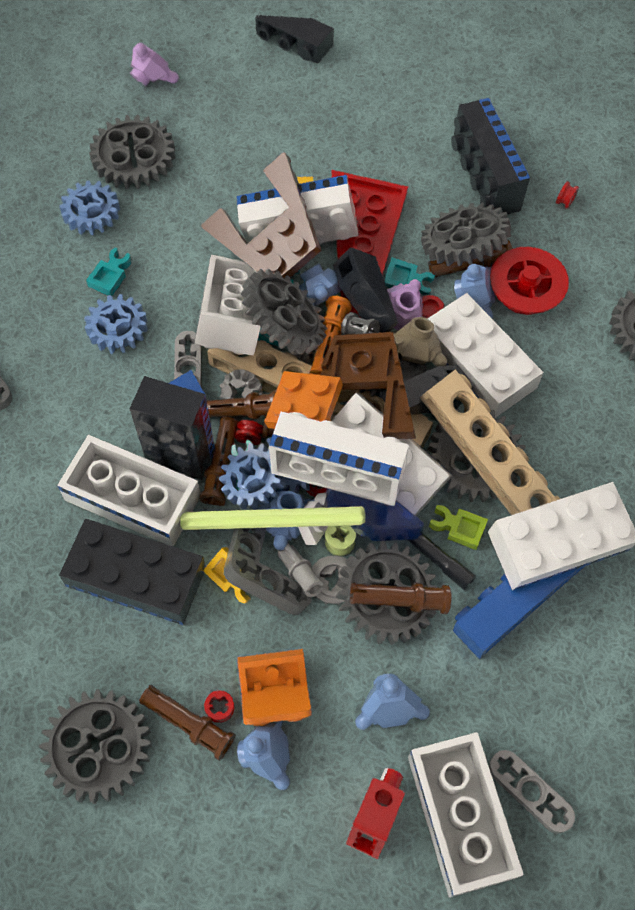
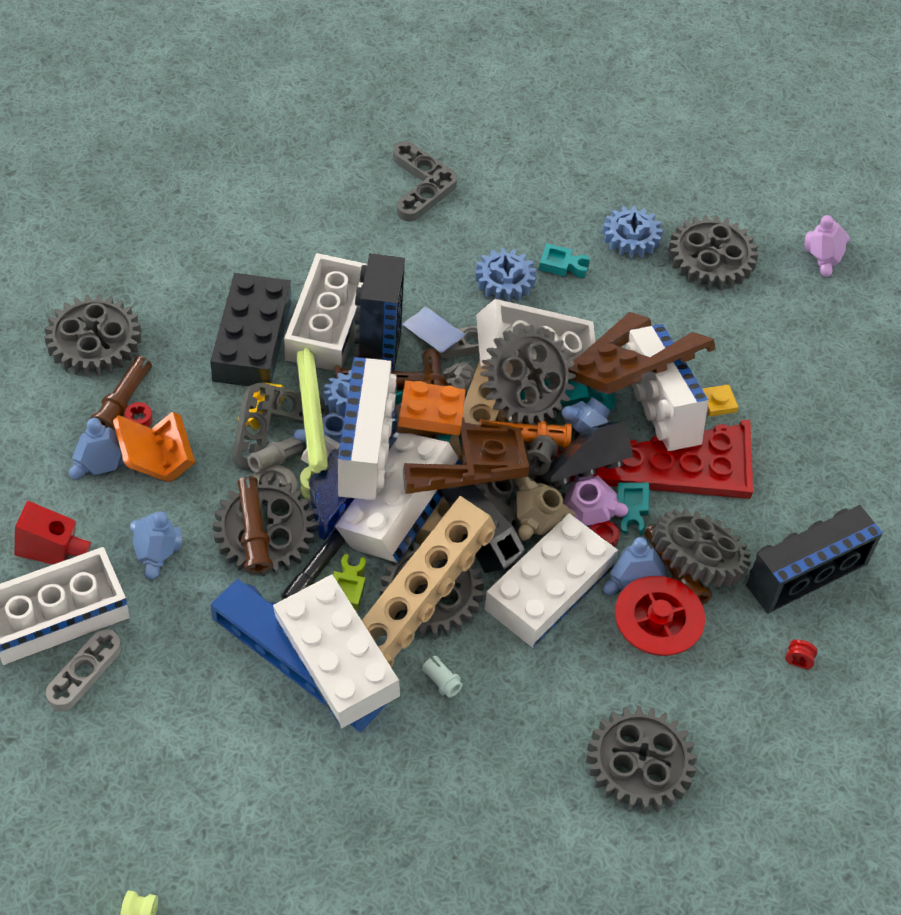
camera: 75 degrees right, 10 degrees down
(563, 464) = (448, 683): none -> light aqua pin

